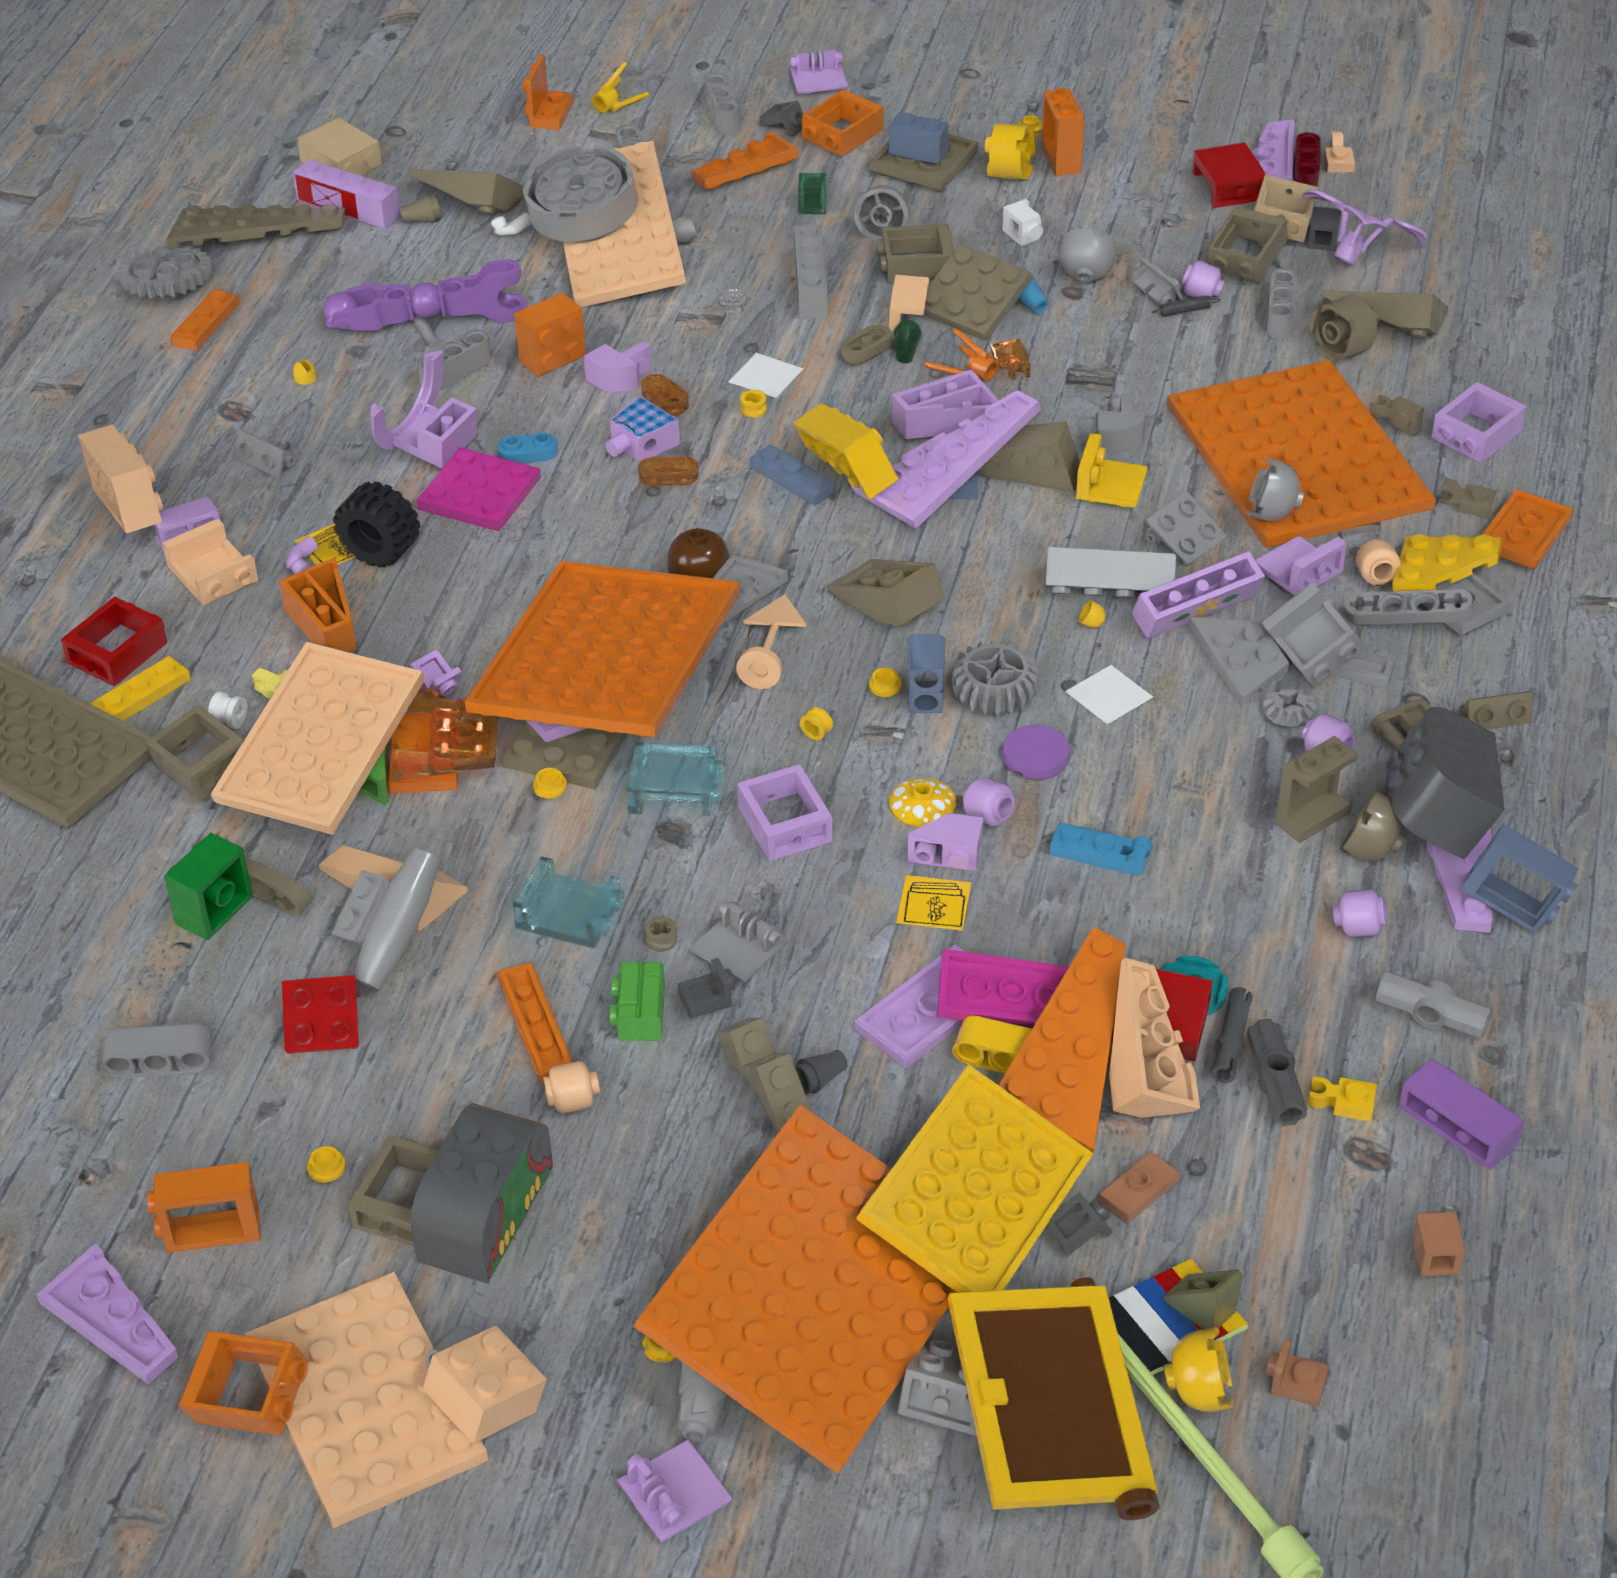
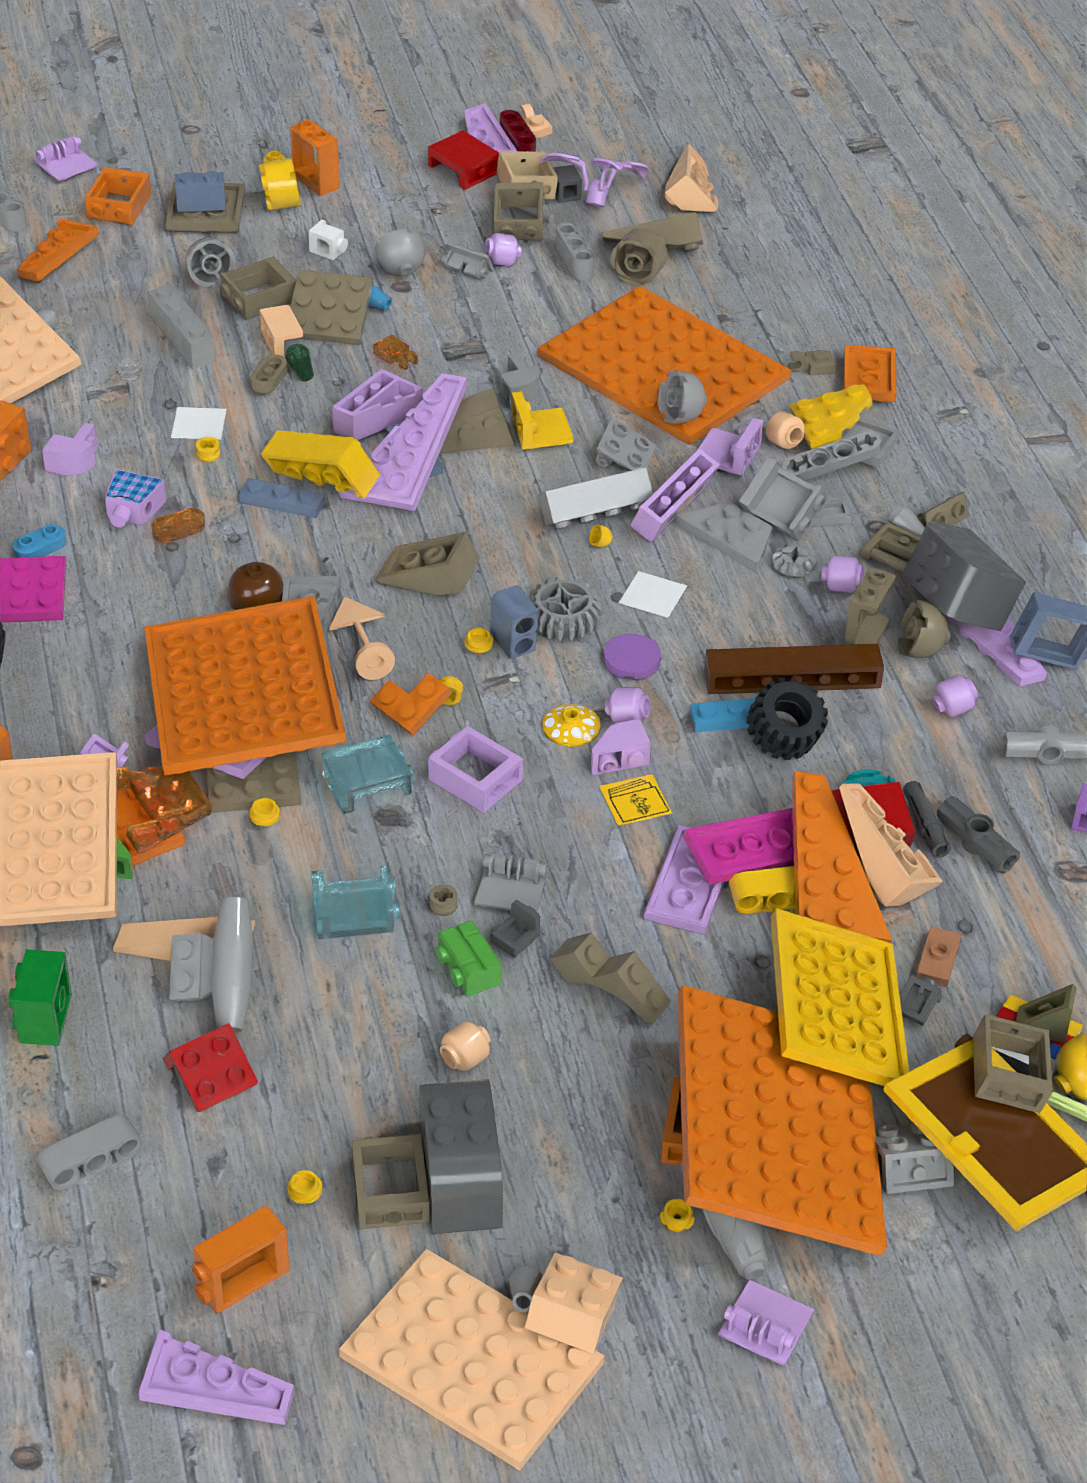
camera: 30 degrees left, 0 degrees up
(213, 1371) = (370, 1355): orange window -> none
(277, 889) = (104, 980): dark tan beam -> none
(534, 1018) = (391, 1007): orange tile -> none
(665, 394) = (128, 460): clear orange plate -> none
(766, 728) = (411, 709): none -> orange plate
(784, 114) = (62, 201): dark grey bracket -> none
(812, 193) = (135, 261): clear green brick -> none
(820, 1070) = (650, 955): dark grey cone -> none
(980, 362) = (373, 362): orange plant -> none
(1091, 1355) = (1005, 1085): none -> dark tan window
(1149, 846) = (799, 703): none -> black tyre
(1185, 305) = (499, 273): dark grey piece -> none
(1199, 822) = (819, 666): none -> reddish brown brick
(1350, 1098) = (1036, 834): yellow plate -> none
(1401, 413) = (724, 312): dark tan plate -> none
(1445, 697) = (906, 519): none -> light grey cone
(1469, 264) = (689, 184): none -> light nougat wedge
(1488, 405) = (787, 289): lavender window -> none

